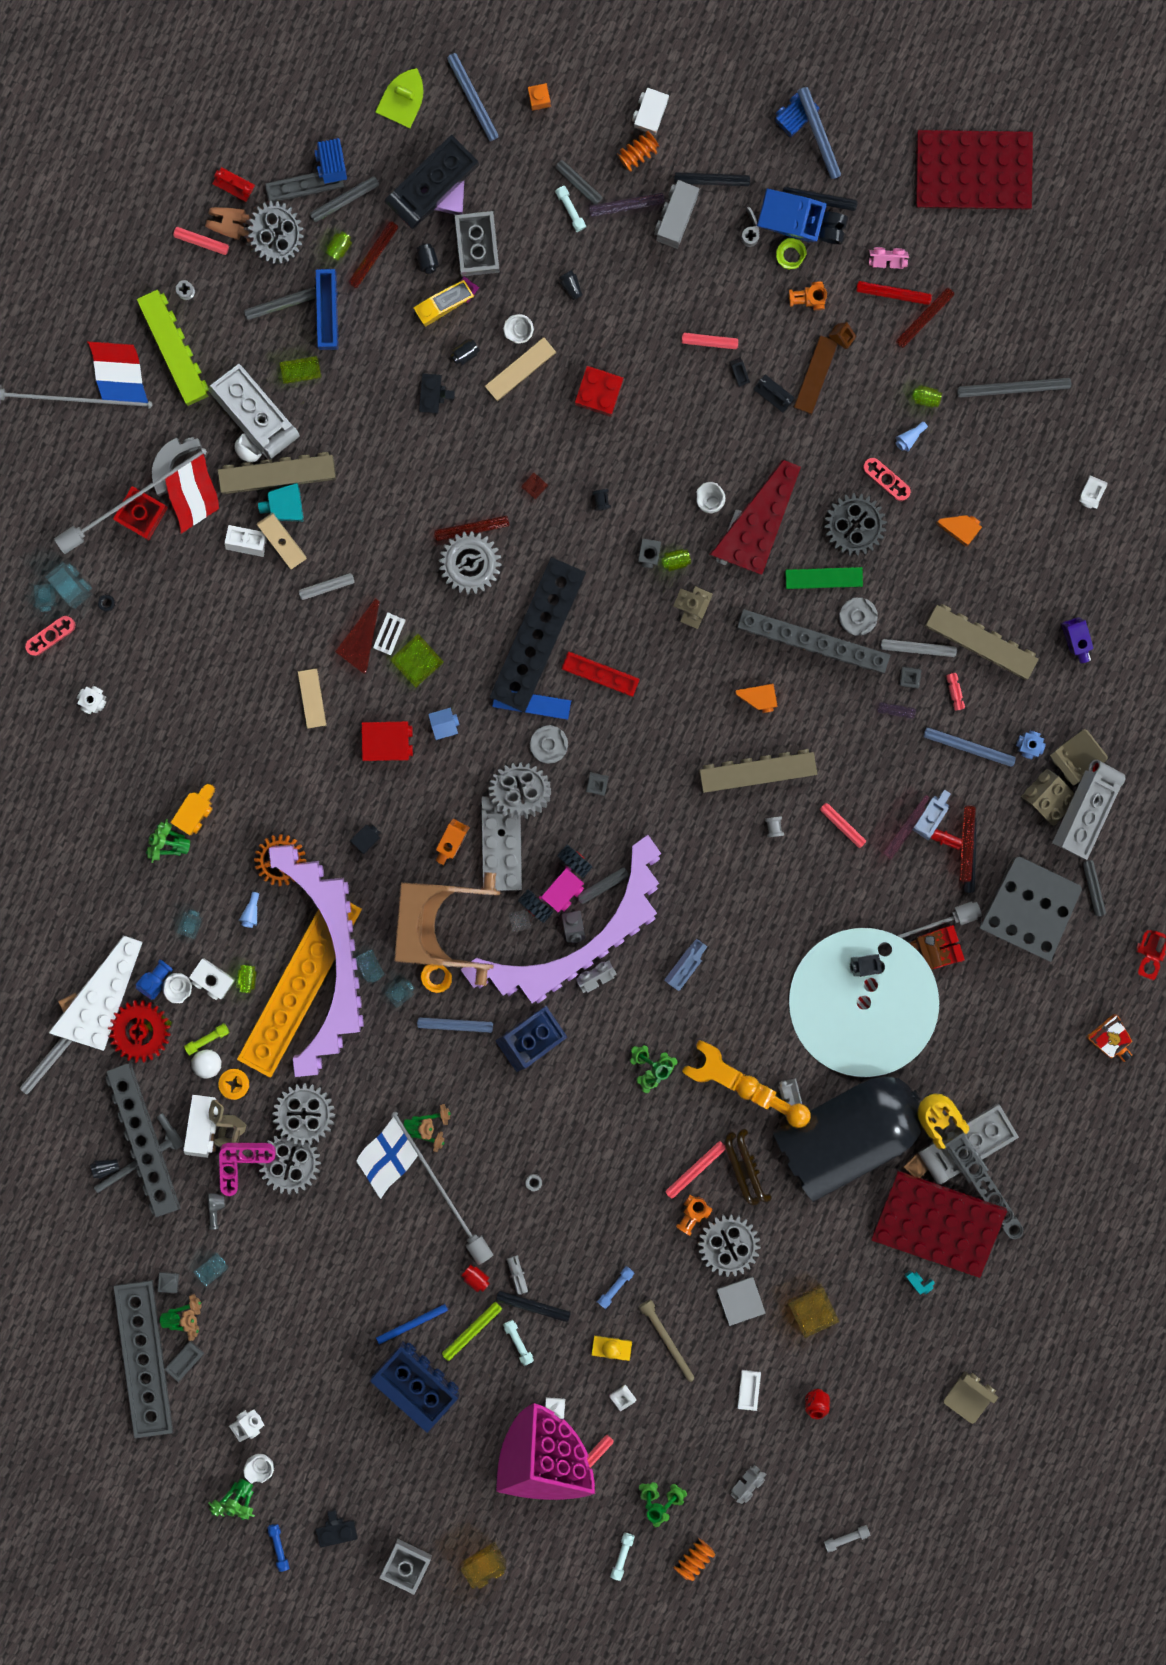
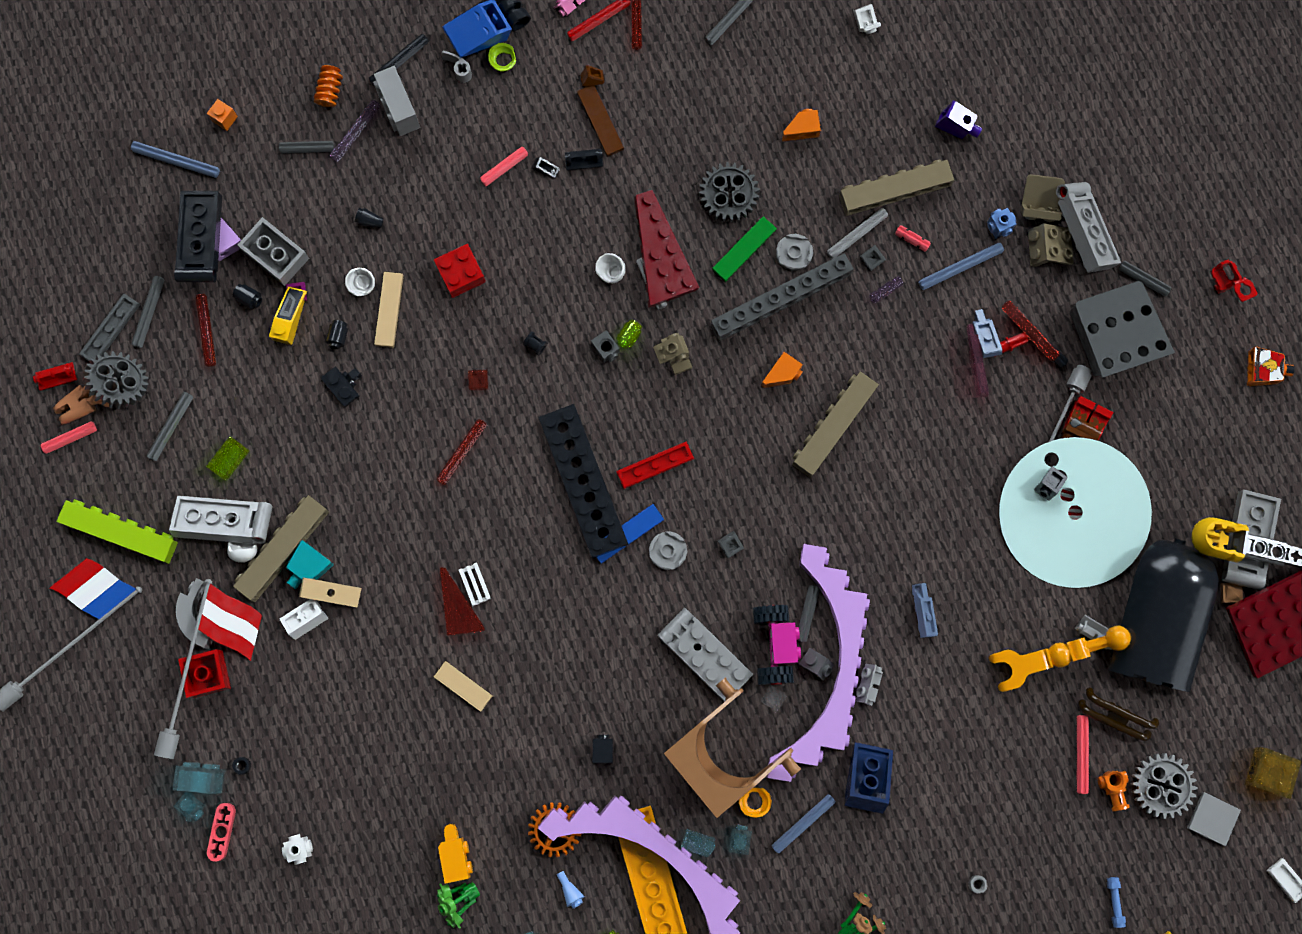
camera: 45 degrees left, 10 degrees down
(190, 293) = (82, 482): light grey bush -> none
(326, 586) = (395, 594): light grey axle -> none
(327, 309) = (207, 397): blue brick -> none
(331, 161) = (112, 292): blue brick -> none
(339, 245) = (174, 346): clear neon green brick -> none
(386, 741) = (548, 663): red brick -> none
(402, 98) = (125, 206): lime shield -> none
(417, 660) = (513, 583): clear neon green plate -> none
(444, 723) = (577, 609): medium blue brick -> none
(453, 571) = (477, 493): light grey gear -> none
(454, 835) = (665, 682): orange torso -> none
(502, 794) = (683, 591): light grey gear -> none
(562, 194) = (303, 165): light aqua bar -> none
(648, 1309) = (1156, 894): dark tan piece -> none
(651, 111) = (310, 52): white brick -> none
(660, 1069) = (984, 702): bright green plant -> none
(774, 827) = (885, 451): light grey bush -> none
(806, 296) = (542, 74): orange connector -> none
(843, 825) = (931, 404): coral axle -> none
(894, 478) = (733, 146): coral beam -> none
(907, 439) = (706, 103): light blue cone -> none
(927, 396) = (690, 62): clear neon green brick -> none

